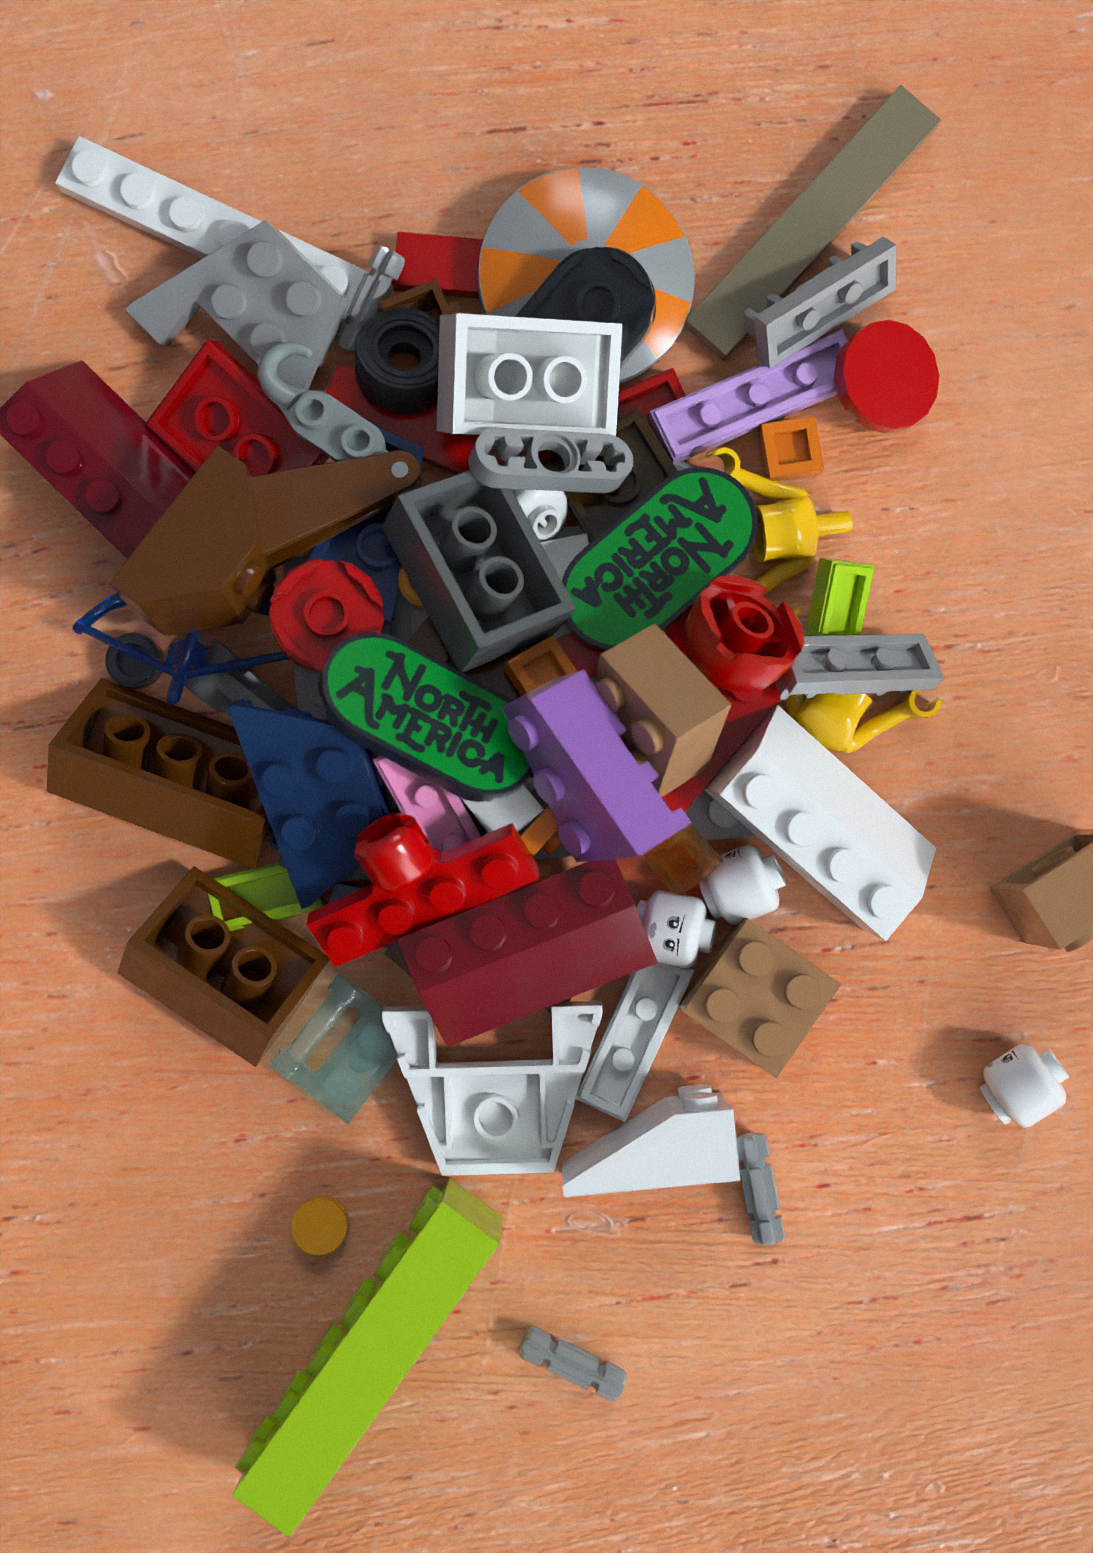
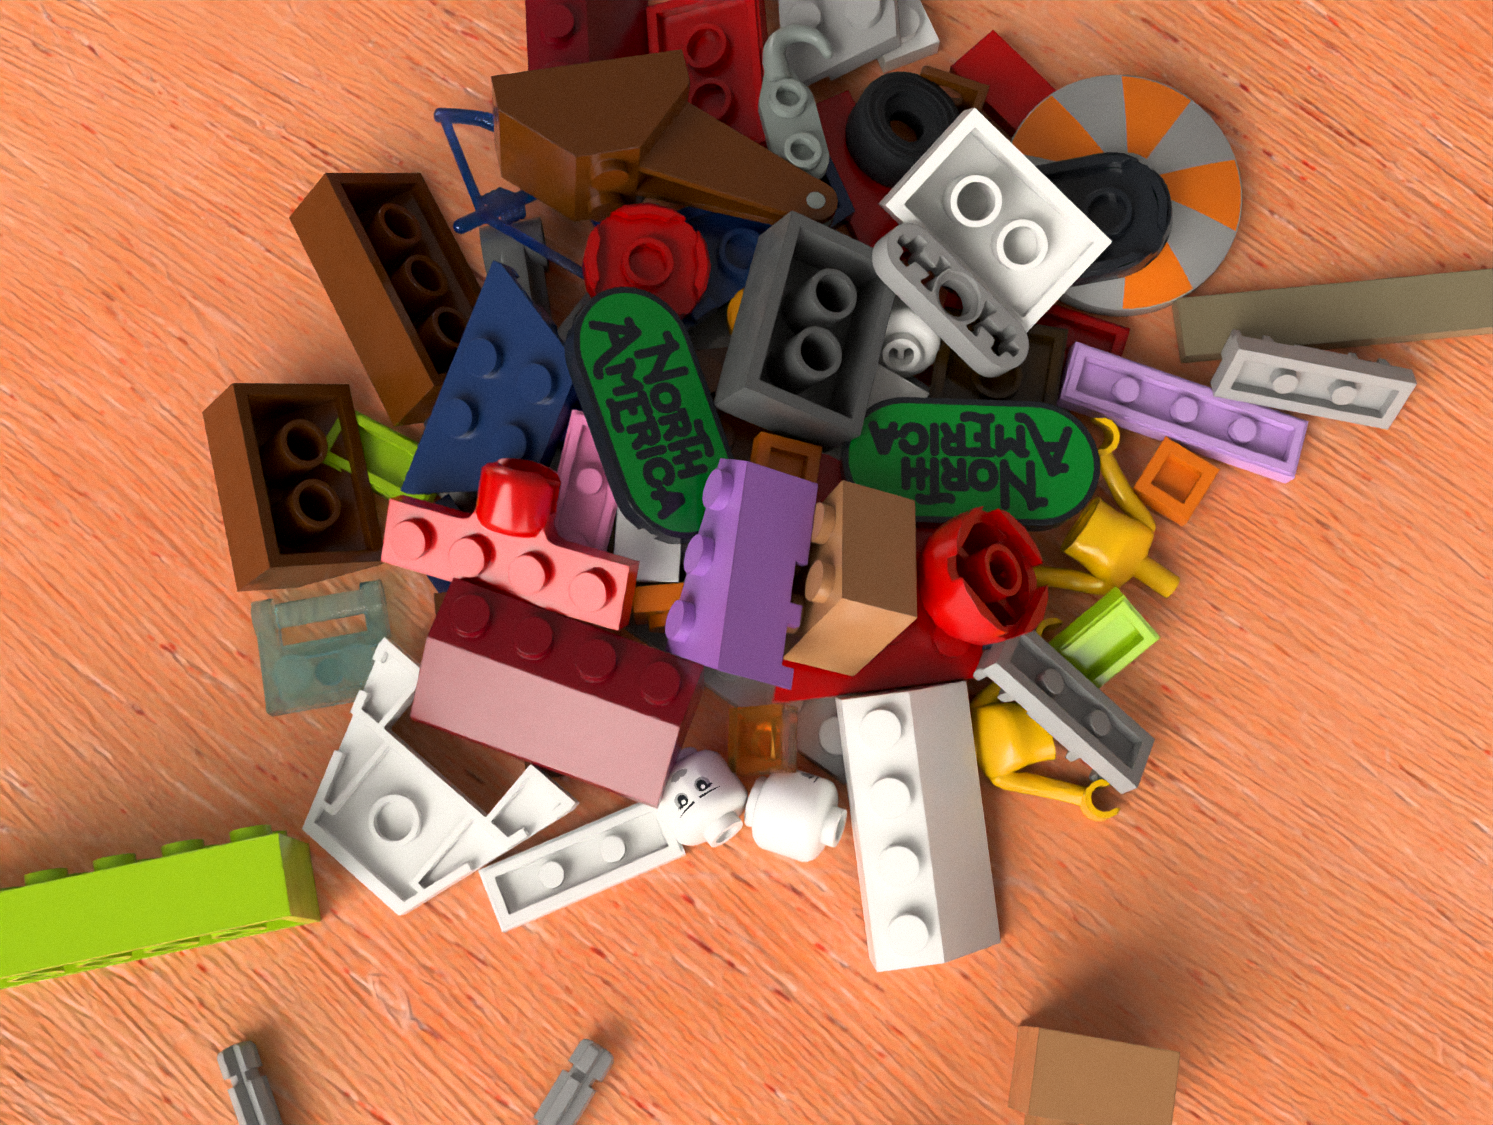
camera: 40 degrees right, 10 degrees down
(129, 670) = (449, 187): black tile -> none
(320, 1225) = (161, 780): light orange tile -> none
(371, 290) = (957, 45): light grey axle -> none
(667, 1145) = (524, 982): white slope -> none
(758, 996) = (720, 922): medium nougat brick -> none
(887, 376) = (1314, 491): red tile -> none

